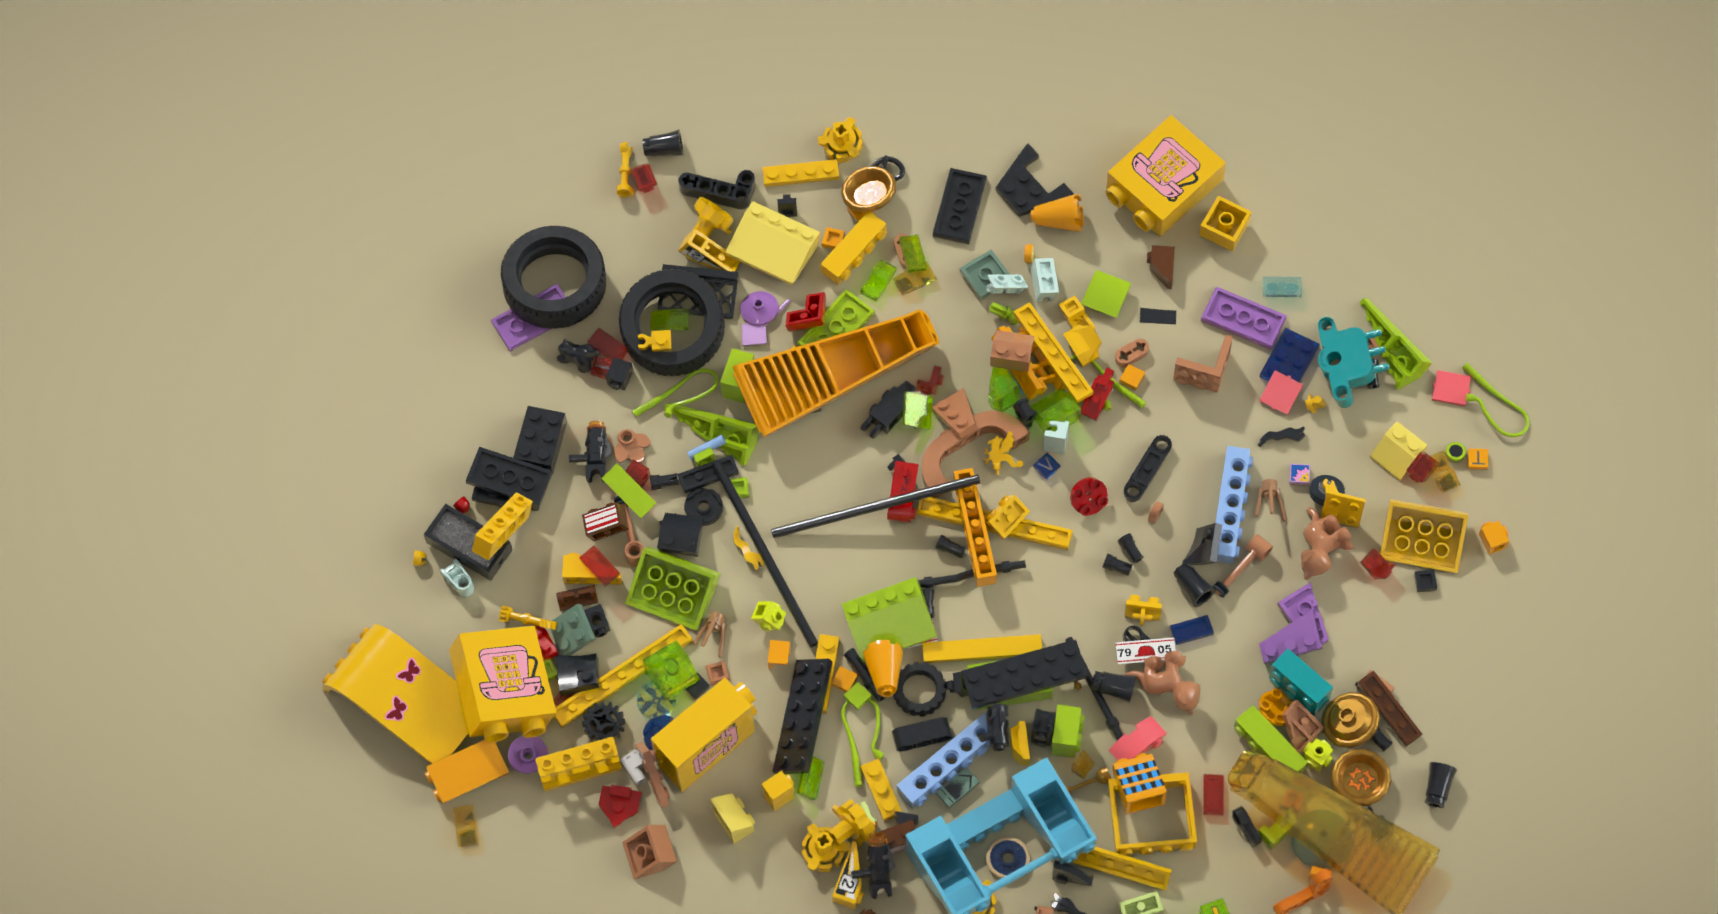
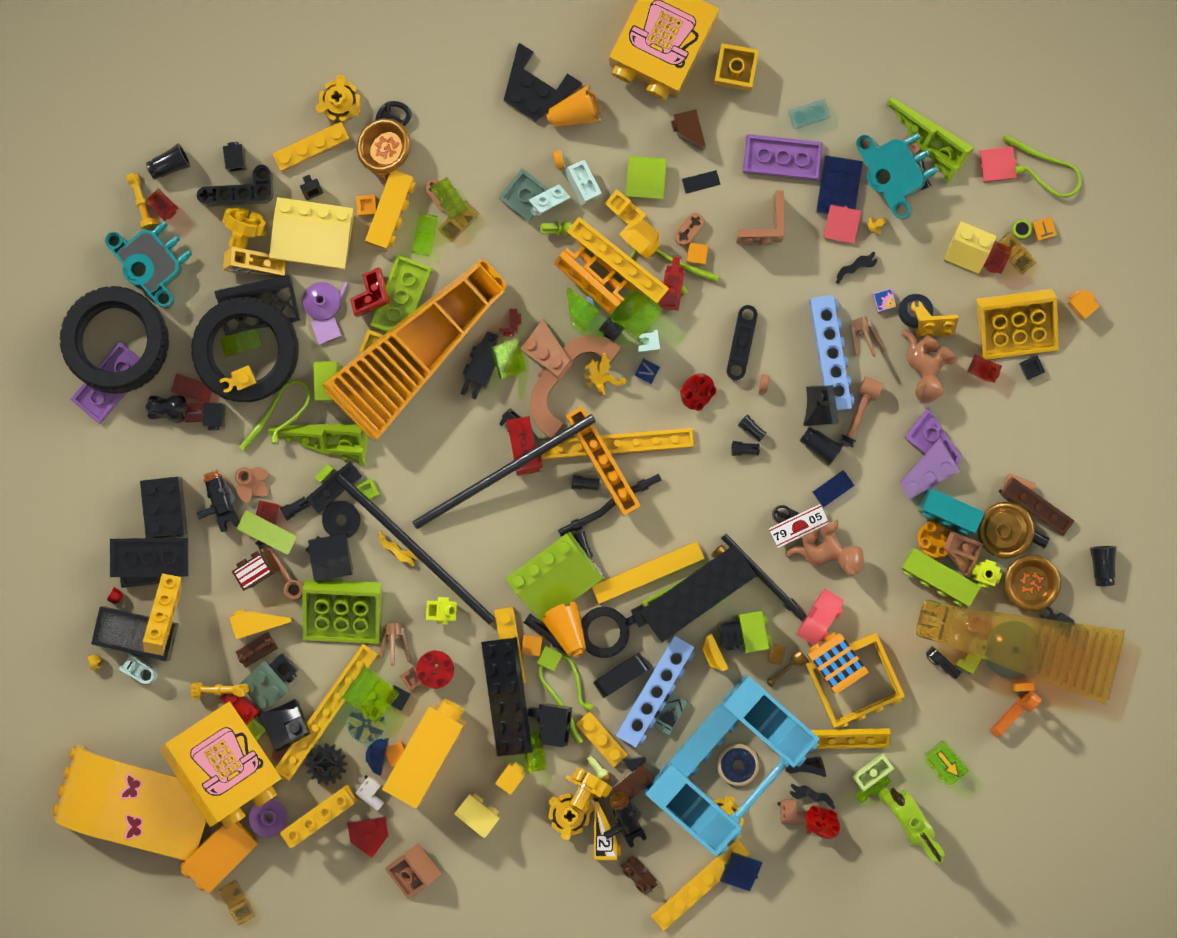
camera: 20 degrees left, 20 degrees up
(599, 566) = (267, 618): clear red tile -> none
(620, 222) = (159, 261): none -> teal piece
(660, 792) = (392, 802): nougat wing -> none
(714, 443) = (321, 463): light blue piece -> none
(726, 159) = (234, 157): none -> black brick
(734, 662) = (426, 666): none -> red plate
(778, 653) = (463, 644): light orange panel -> none
(840, 757) = (555, 722): none -> black hinge
(959, 206) = (475, 130): black tile -> none
(996, 727) = (690, 653): black piece -> none
(1006, 515) = (627, 437): yellow bracket -> none
(1011, 351) = (580, 275): nougat slope -> none
(1114, 685) = (781, 570): black plant -> none
(1143, 610) = (783, 488): yellow hips -> none
(1213, 794) = (903, 641): clear red tile -> none

